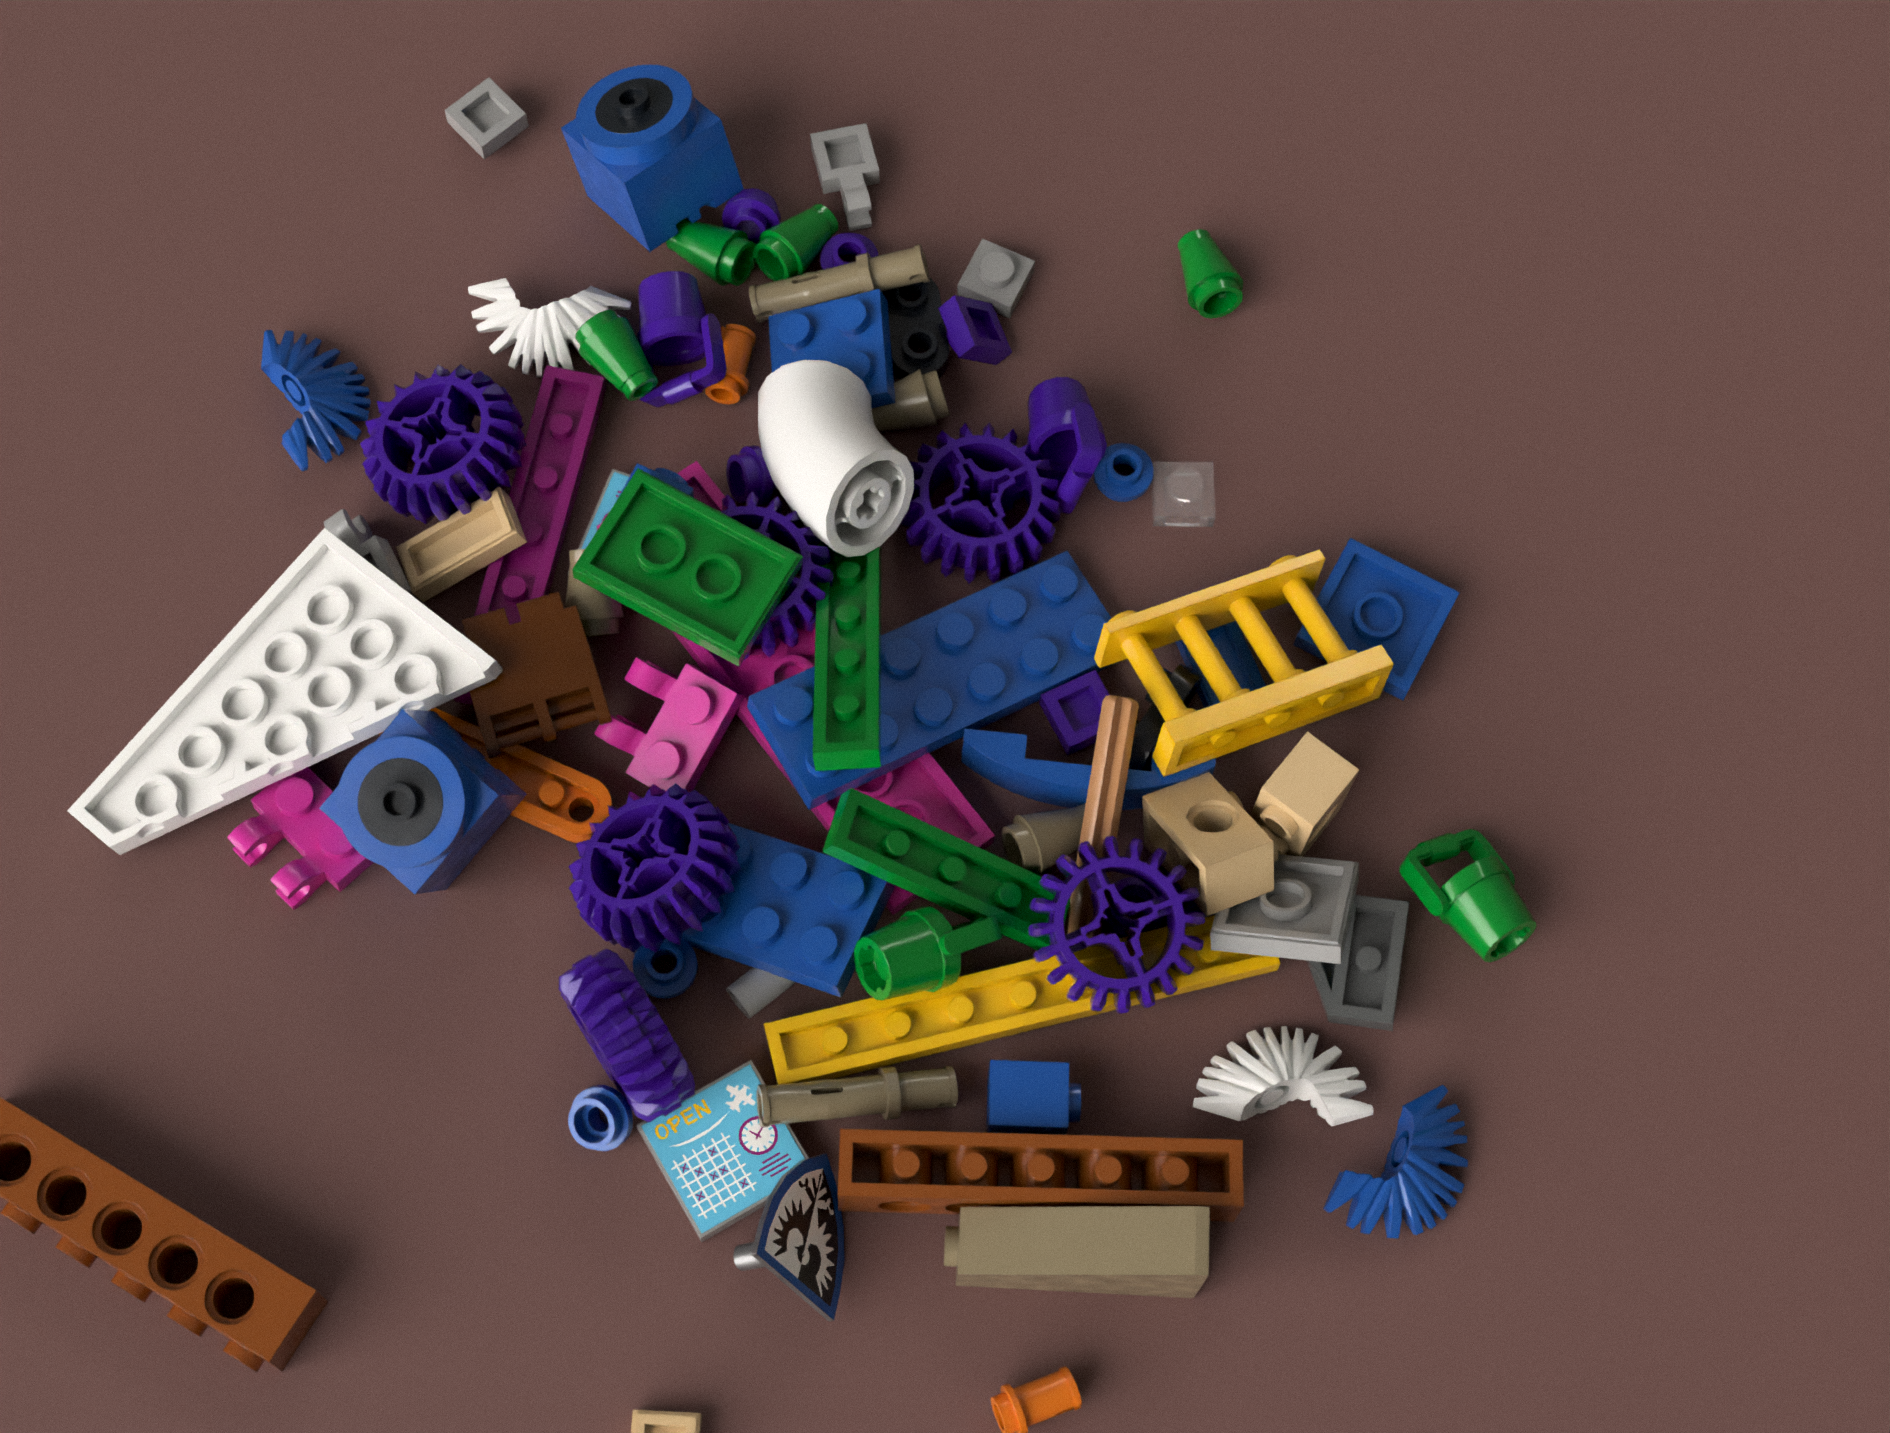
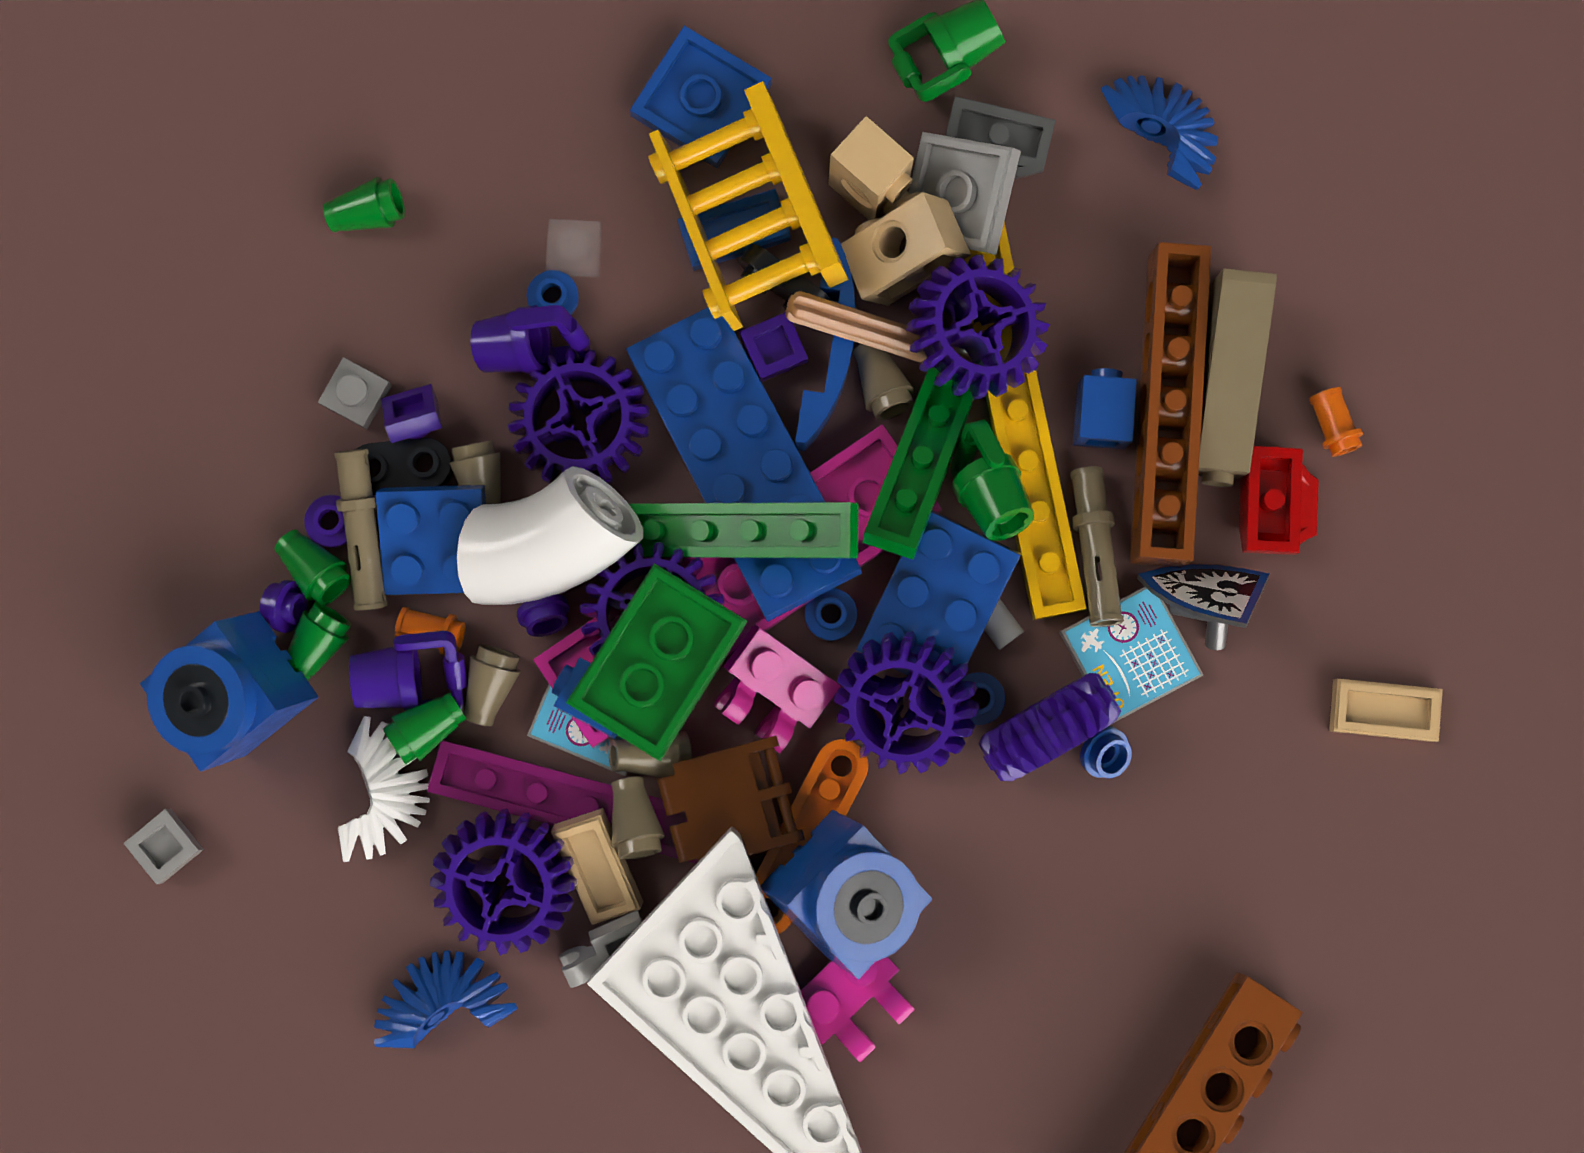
camera: 85 degrees left, 15 degrees up
(511, 571) = (634, 821): none -> dark tan cone
(673, 425) = (489, 682): none -> dark tan cone
(758, 808) = (826, 630): none -> blue plate
(847, 165) = (234, 518): light grey plate -> none
(926, 1329) = (1277, 502): none -> red slope
(1281, 1075) = (1082, 214): white hair -> none

